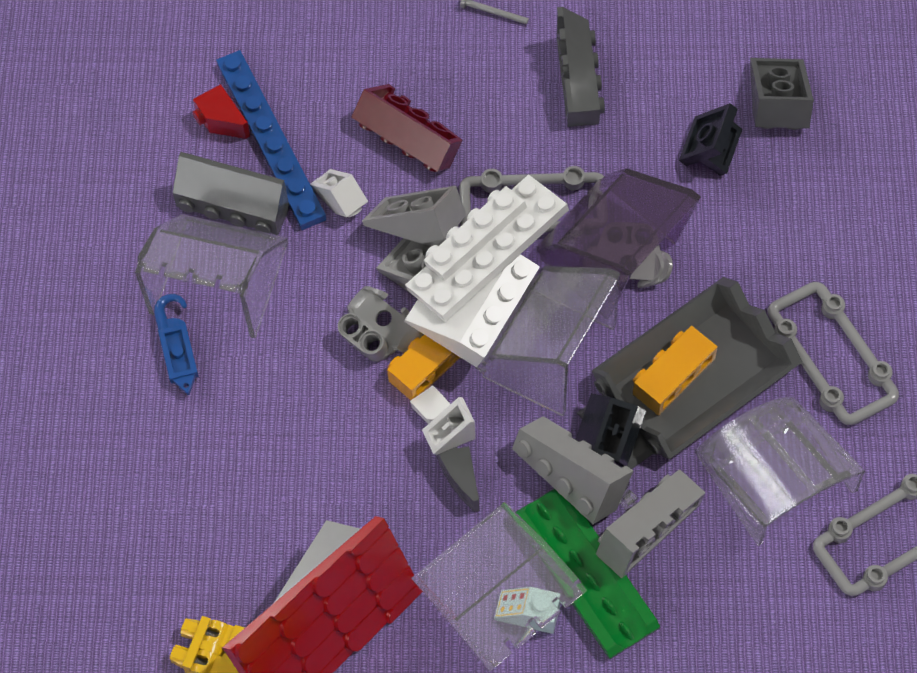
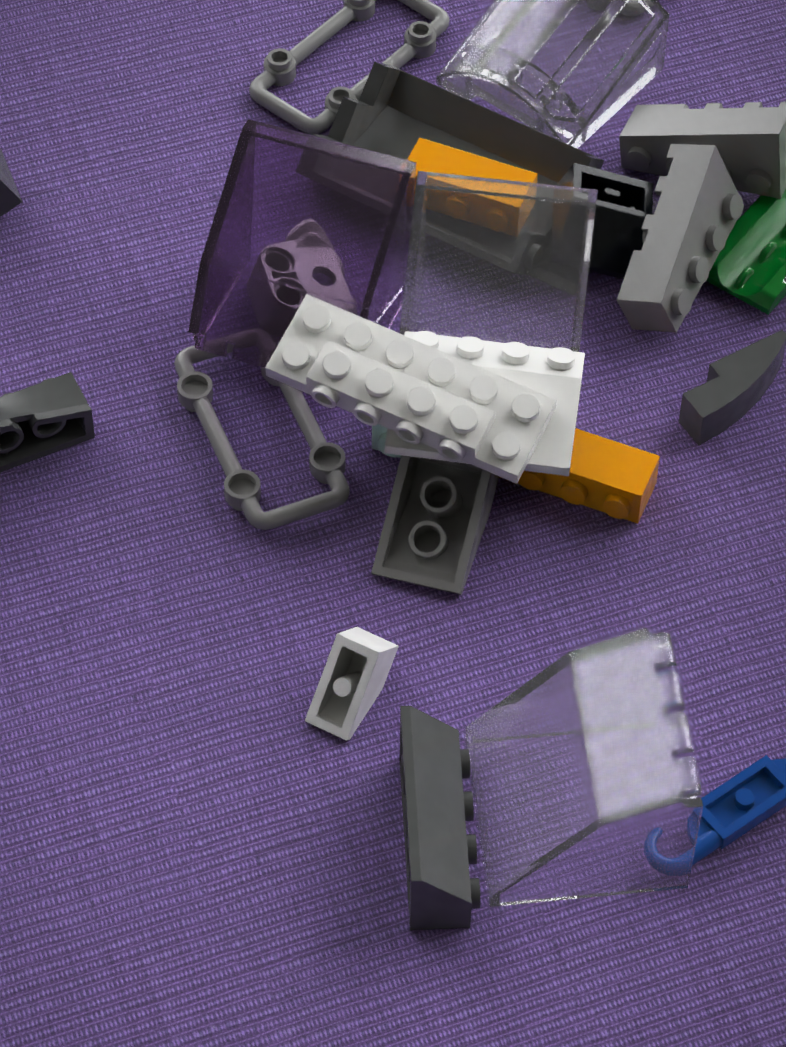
camera: 115 degrees left, 10 degrees down
(220, 114) = (267, 912): red slope -> none
(271, 139) = (269, 838): blue plate -> none
(364, 312) = (539, 581): light grey piece -> none
(406, 127) = (190, 624): dark red wedge -> none
(418, 215) = (361, 544): light grey slope -> none
(429, 404) = (663, 436): white slope -> none
(450, 427) = (702, 372): white slope -> none
(712, 139) = (66, 238): black bracket -> none

